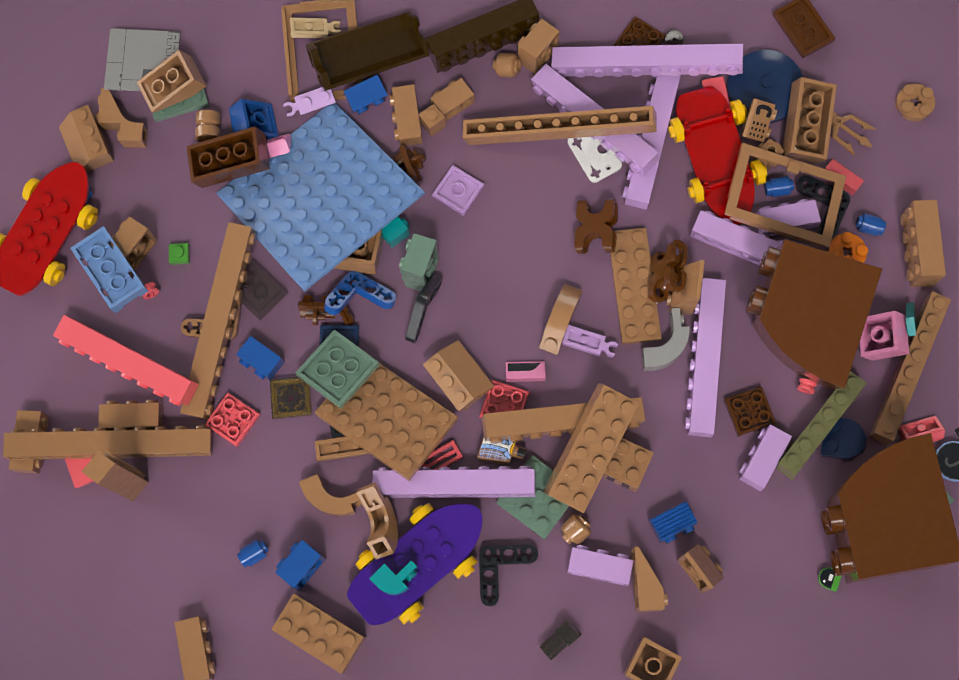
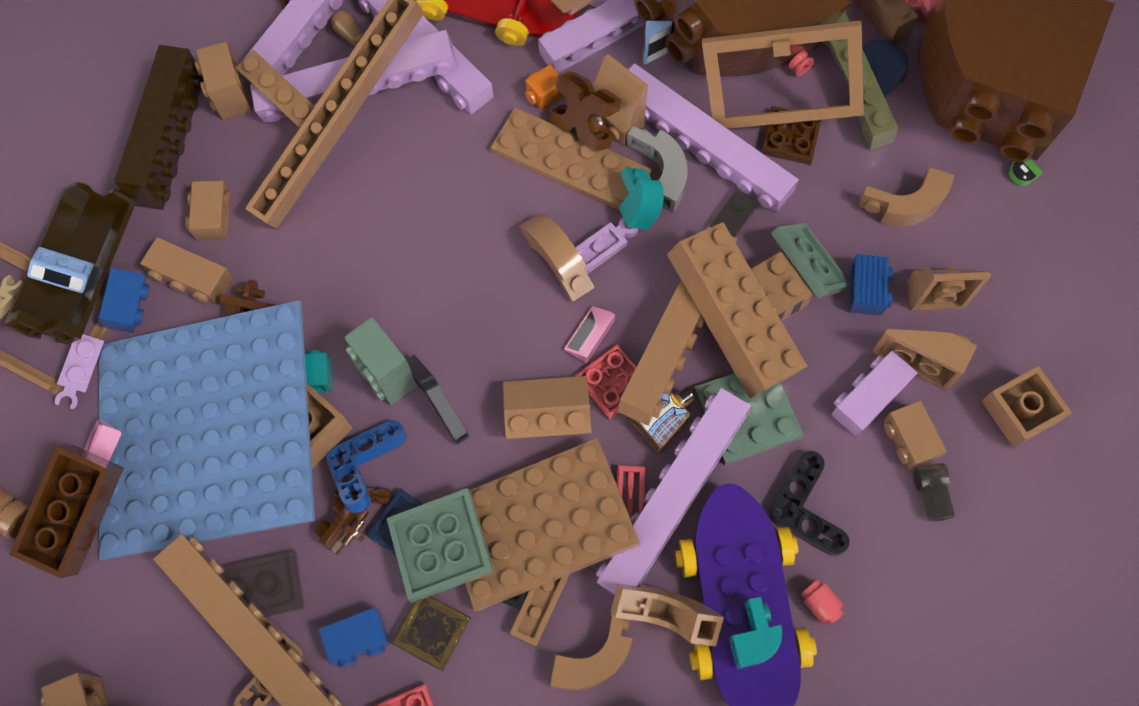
camera: 60 degrees left, 5 degrees down
(179, 253) = (140, 658): bright green plate -> none
(250, 114) = (31, 451): blue slope -> none
(358, 48) = (60, 270): none -> light blue slope
(432, 120) = (216, 245): medium nougat brick -> none
(446, 609) = (822, 602): none -> coral brick
(458, 190) = (320, 273): lavender tile -> none
(507, 65) = (216, 128): medium nougat head -> none
(552, 81) = (275, 88): none -> medium nougat plate
(576, 529) = (814, 392): medium nougat head -> none
(588, 606) = (914, 435): none -> medium nougat brick
(590, 157) = (390, 114): white axle -> none
(596, 226) = (477, 152): reddish brown piece -> none
(629, 90) = (347, 27): none -> medium nougat cone
(631, 346) = (644, 199): none -> teal brick
(663, 475) = (810, 259): none -> sand green plate
(664, 409) = (736, 212): none -> clear smoke plate
(670, 233) = (542, 88): none -> orange brick
(750, 281) = (654, 40): none -> slope
(750, 521) = (911, 208): none -> medium nougat arch
(764, 457) = (855, 151): lavender brick -> none
(778, 361) = (781, 42): none -> medium nougat door

